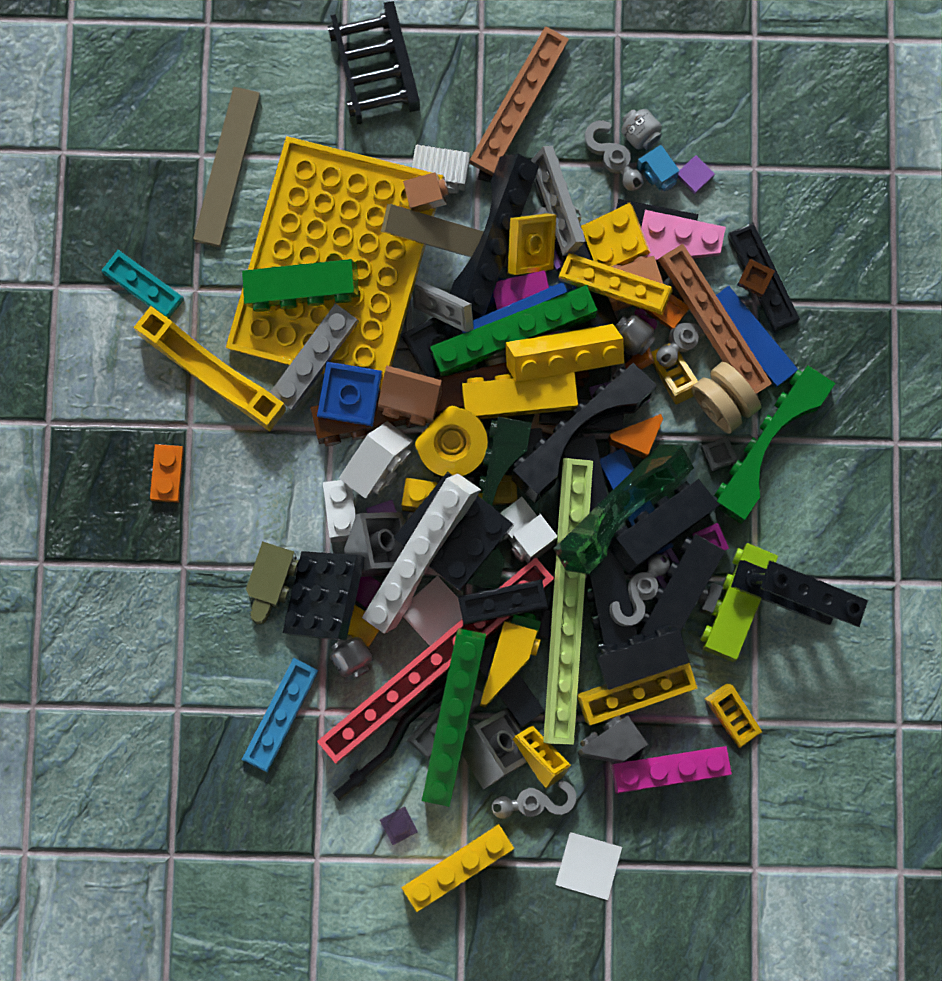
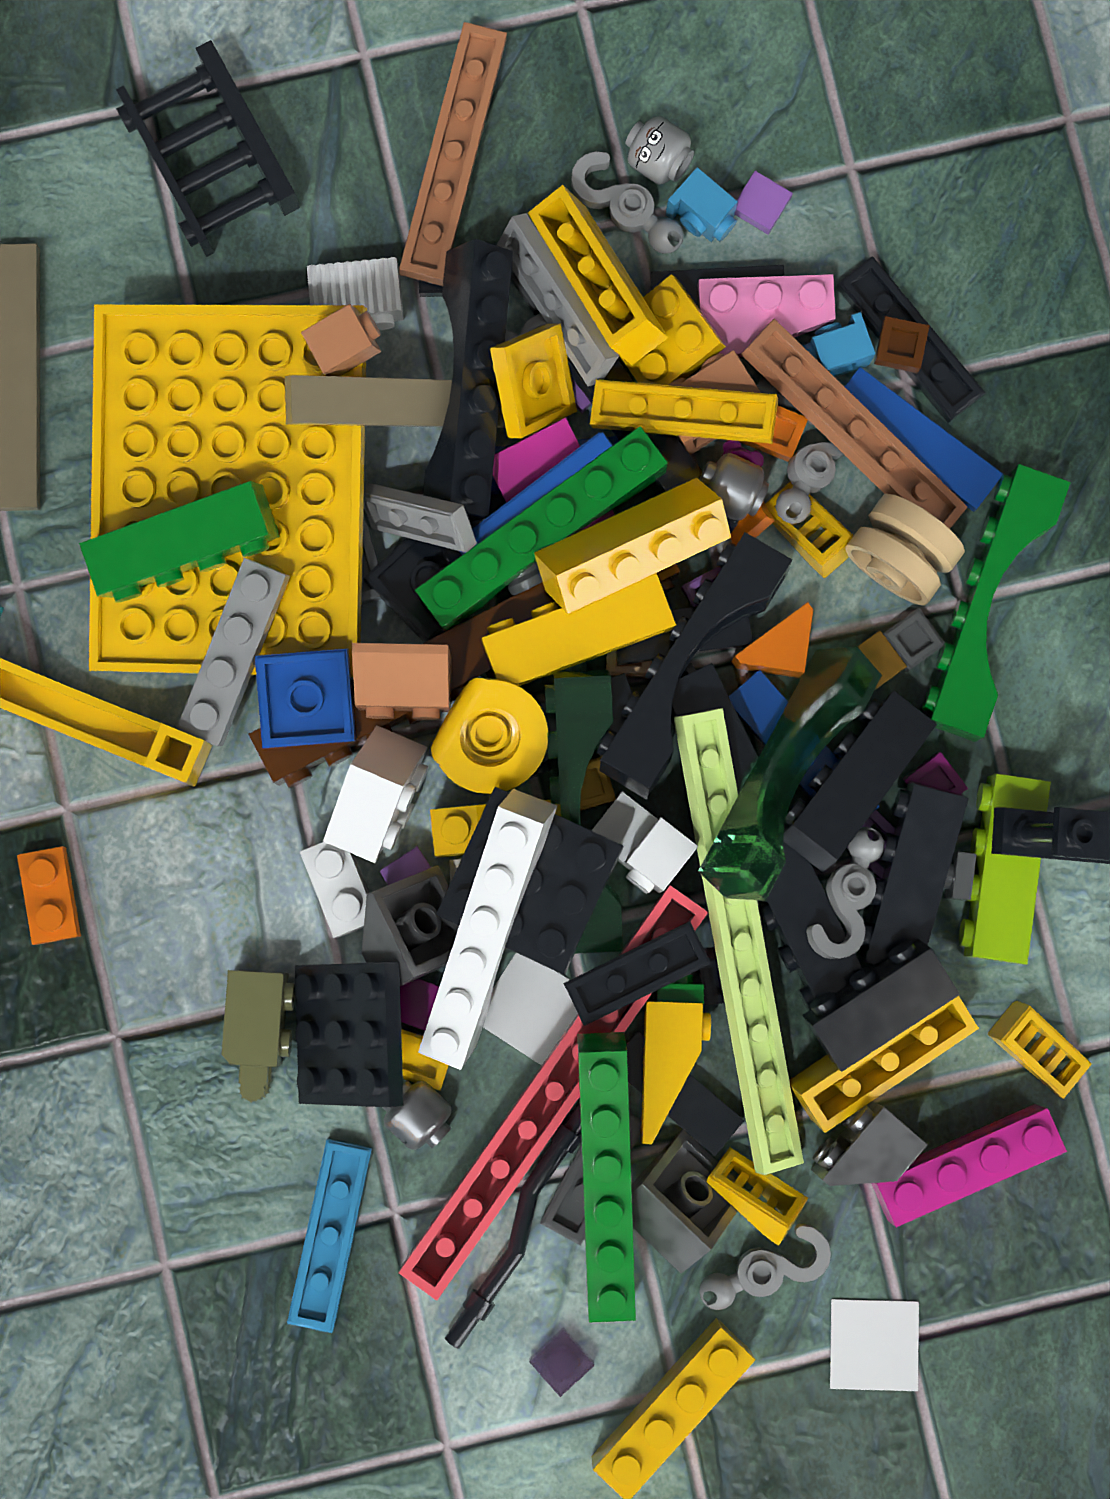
camera: 15 degrees left, 5 degrees up
(585, 192) = (597, 275): none -> yellow brick
(698, 459) = (882, 656): none -> pearl gold tile
(720, 271) = (841, 347): none -> dark azure brick

